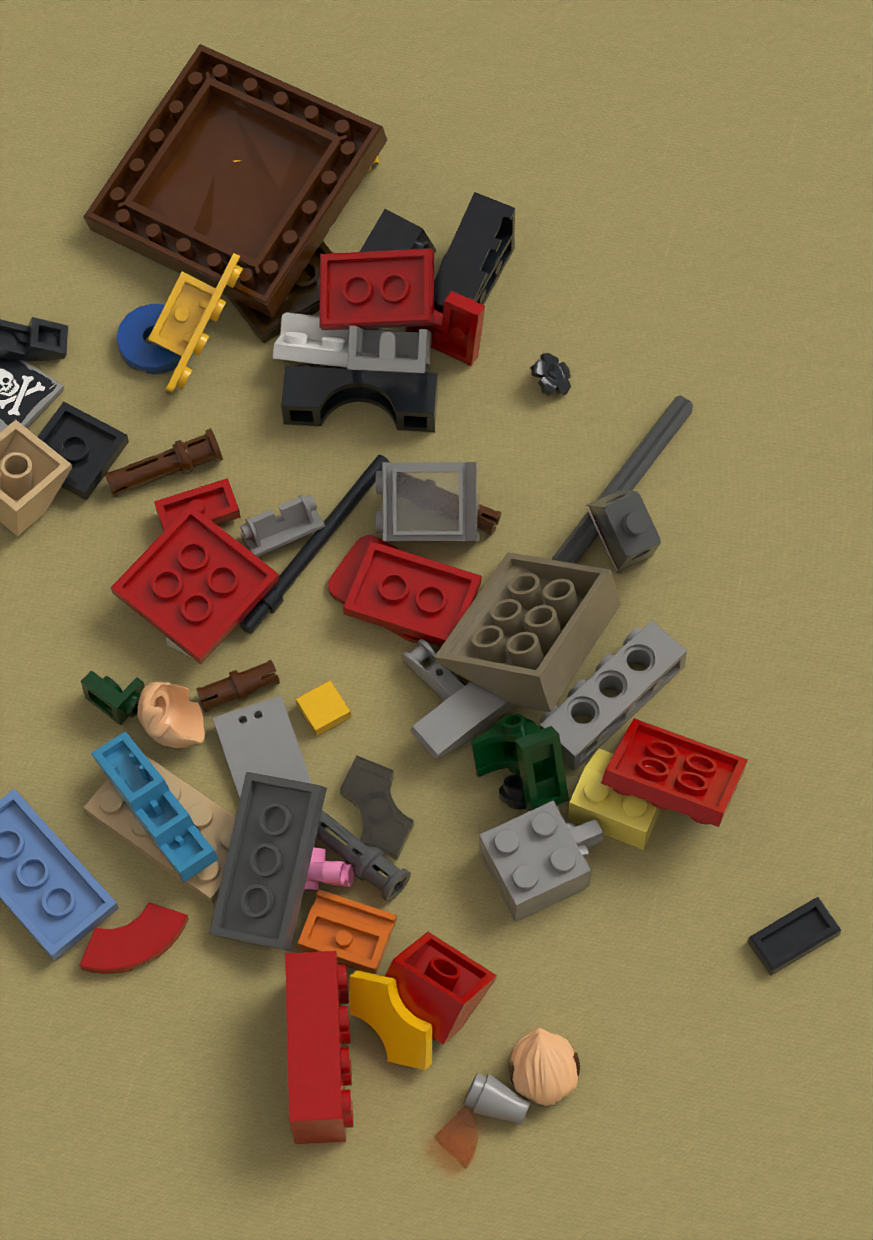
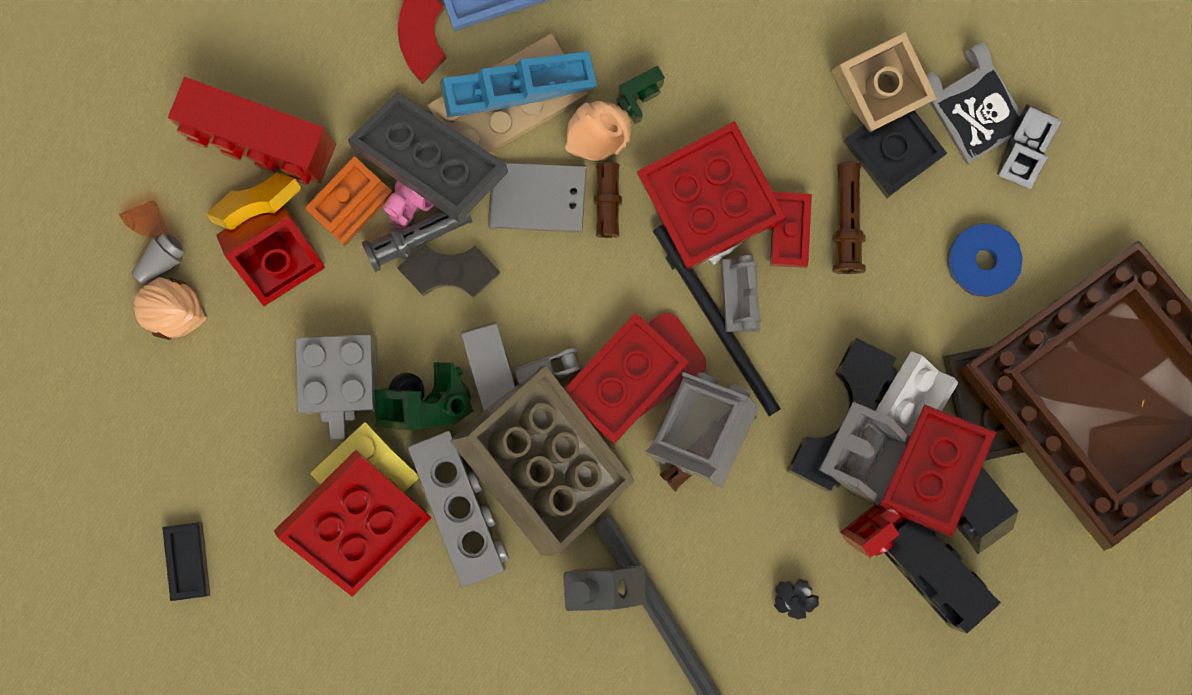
camera: 110 degrees right, 20 degrees up
(186, 316) = (985, 289): yellow bracket -> none
(323, 708) = (557, 263): yellow tile -> none

